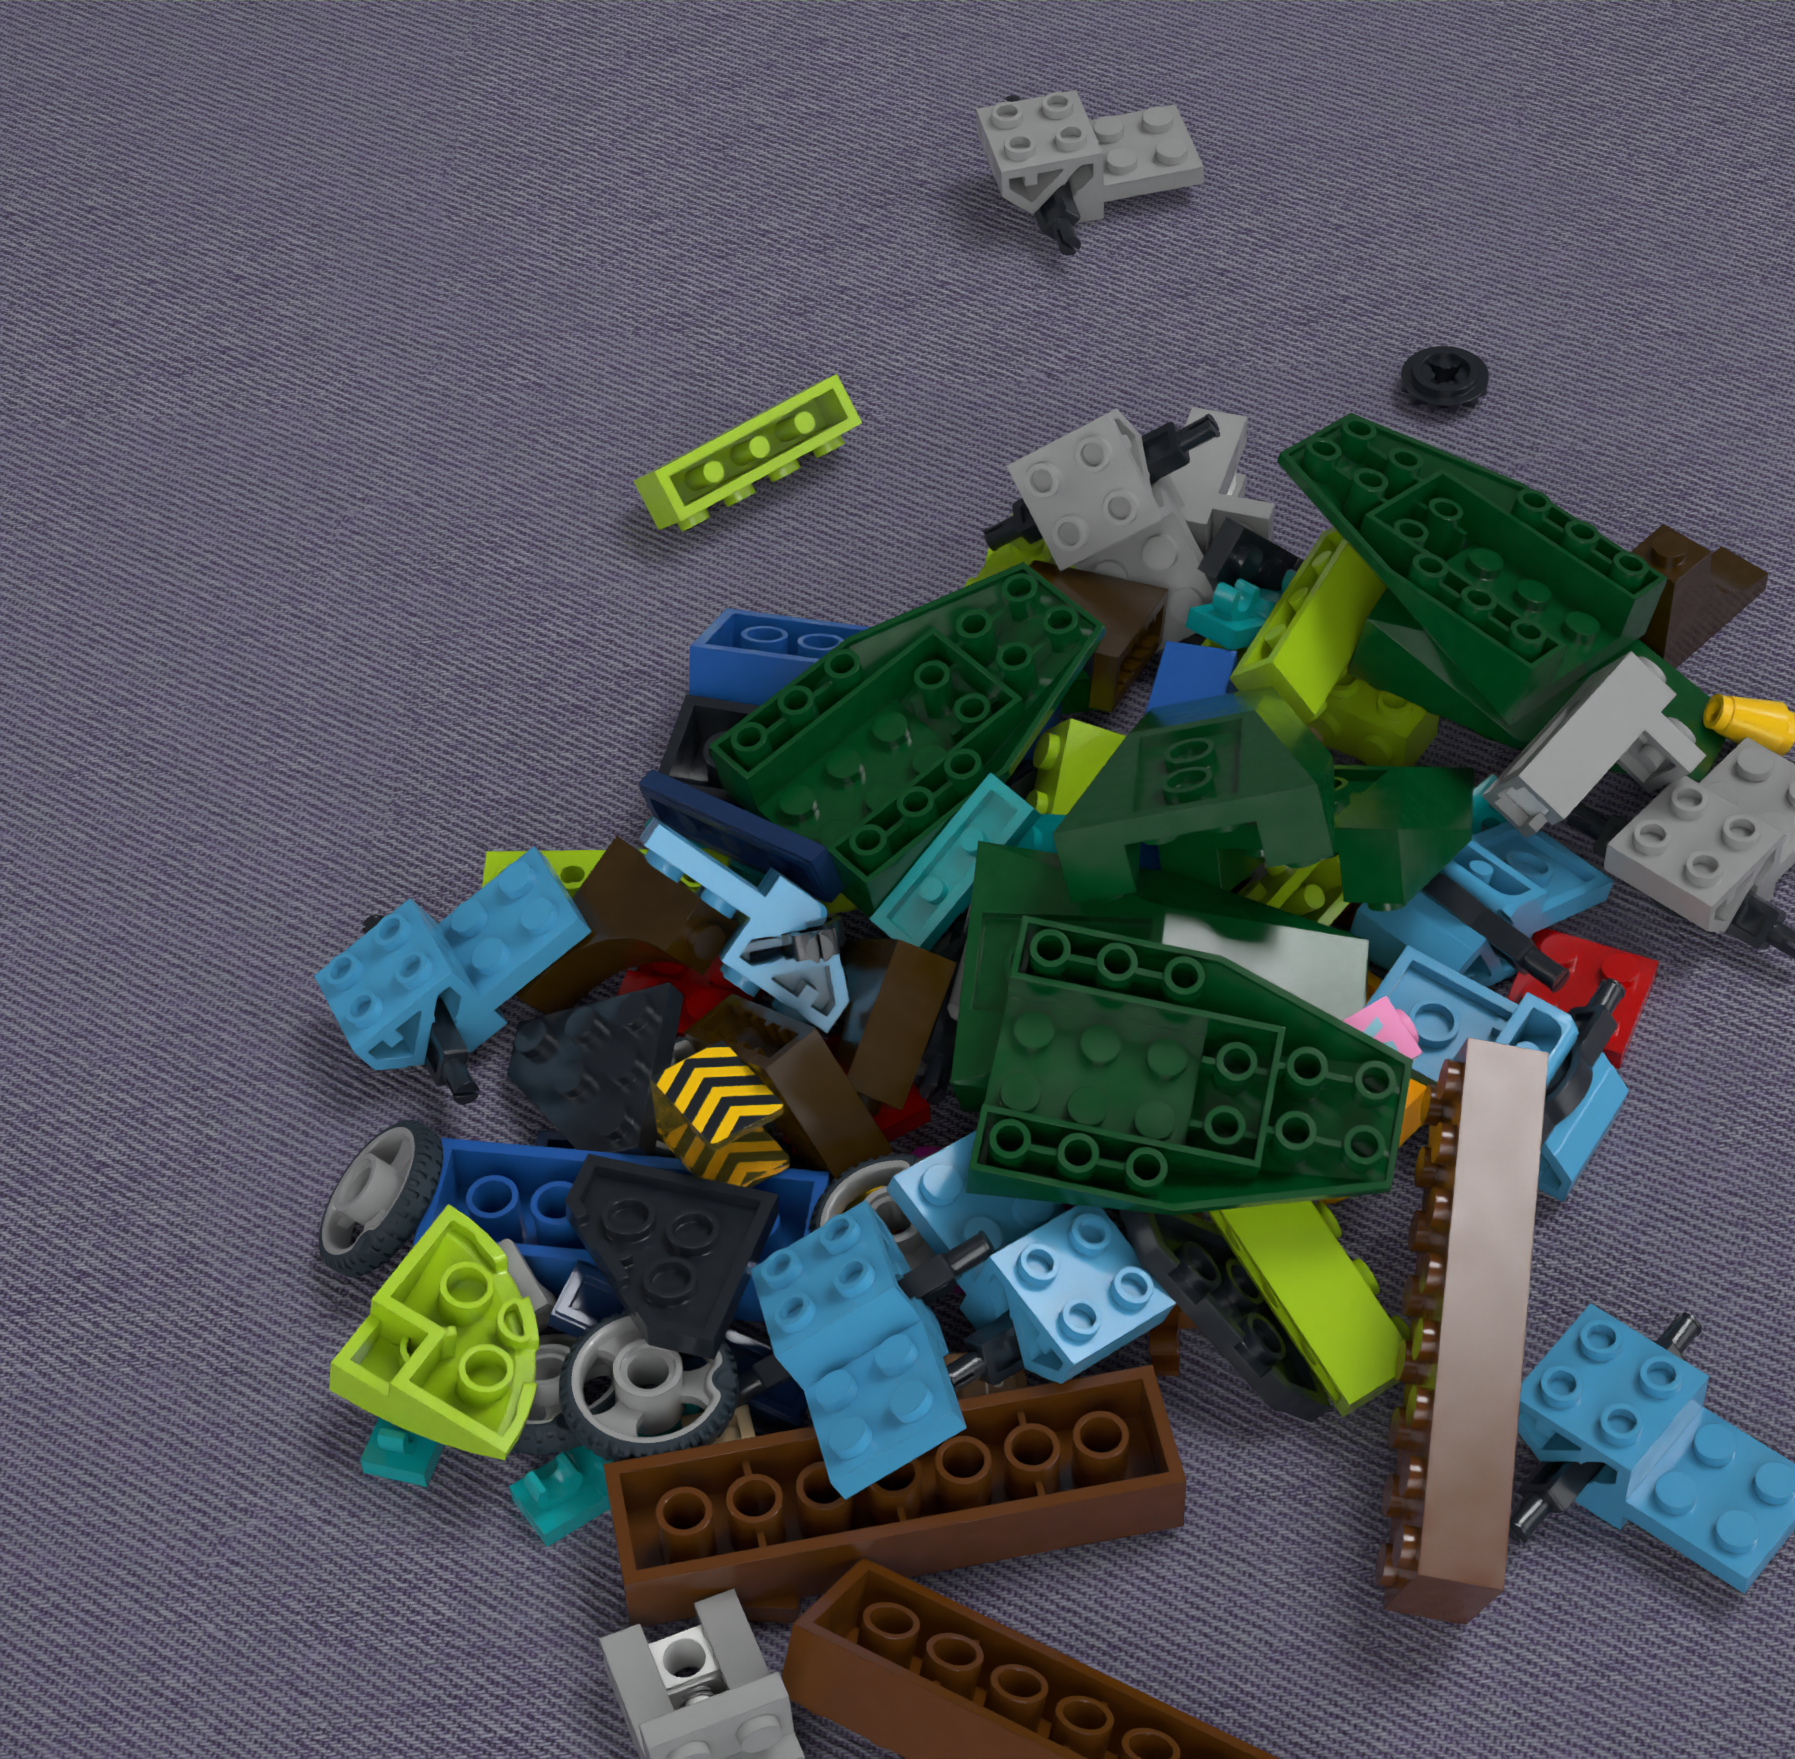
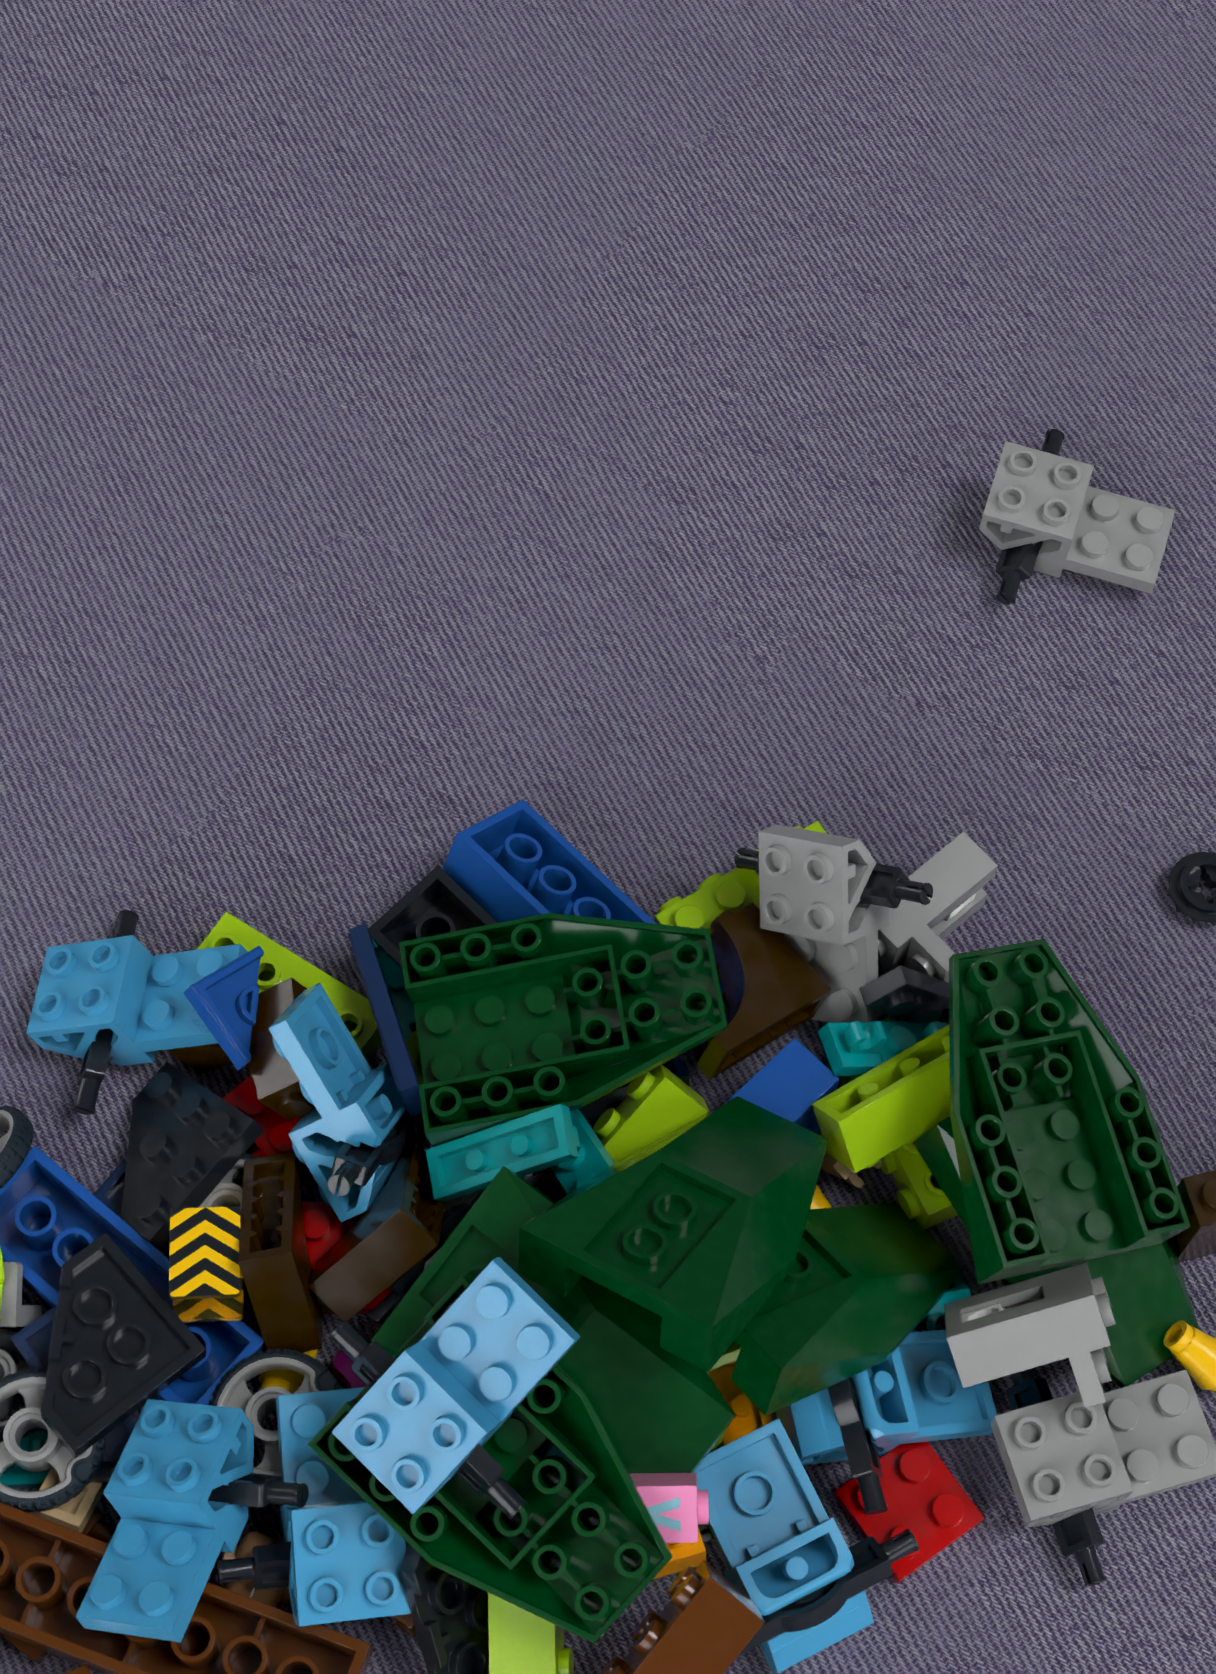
camera: 25 degrees right, 15 degrees up
(570, 892) = (229, 1004): none -> blue tile
(748, 452) = (639, 659): lime brick -> none
(1090, 1011) = (452, 1390): none -> dark azure piece

